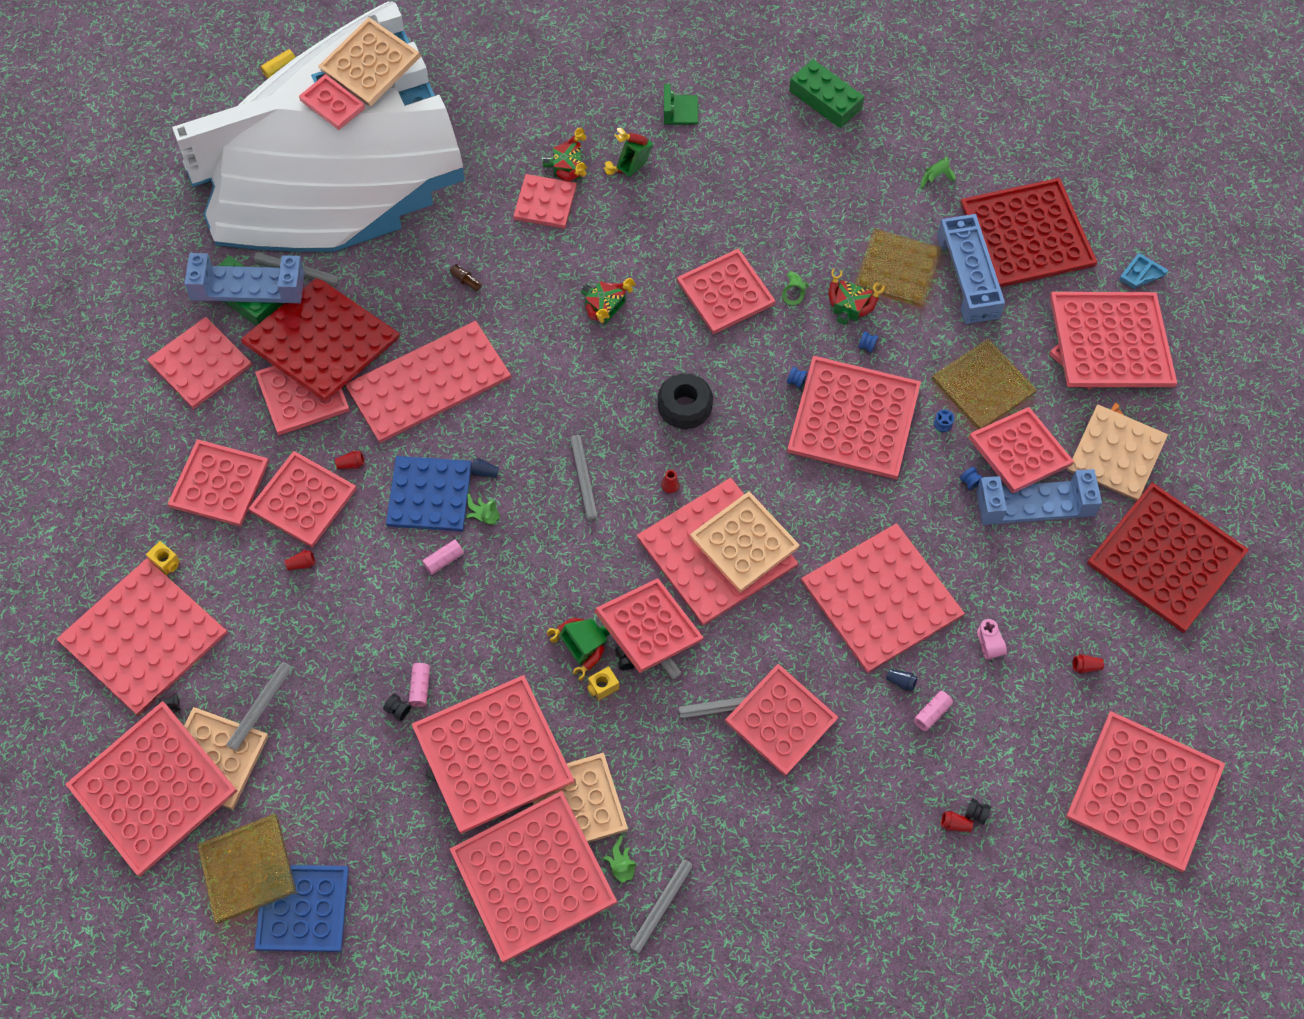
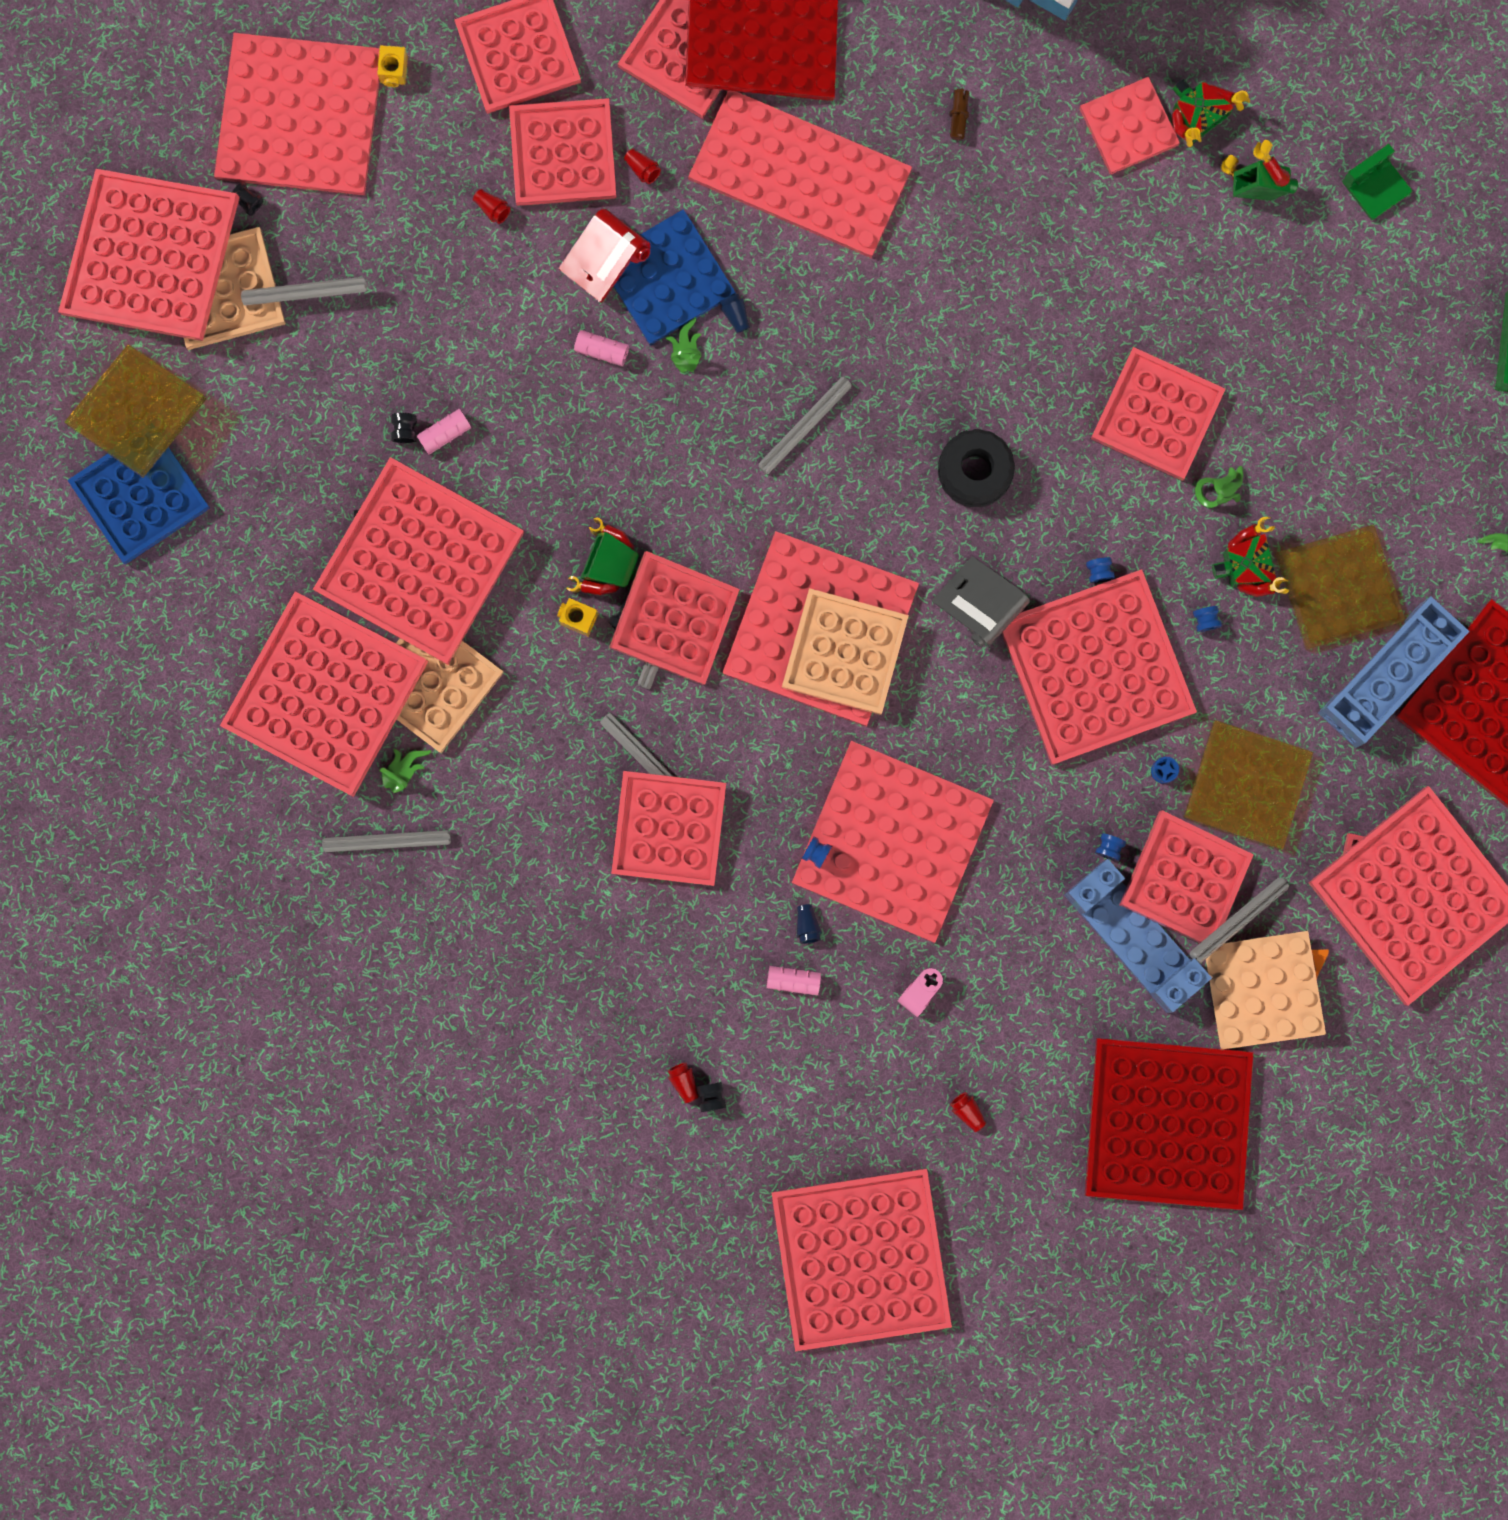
camera: 55 degrees right, 20 degrees up
(387, 513) = (604, 253): none -> door
(606, 299) = (1042, 288): torso -> none
(670, 482) = (863, 529): red cone -> none
(768, 449) = (981, 601): none -> dark grey door
(861, 639) = (816, 852): none -> blue wheel
(1065, 437) = (1239, 920): none -> light grey axle

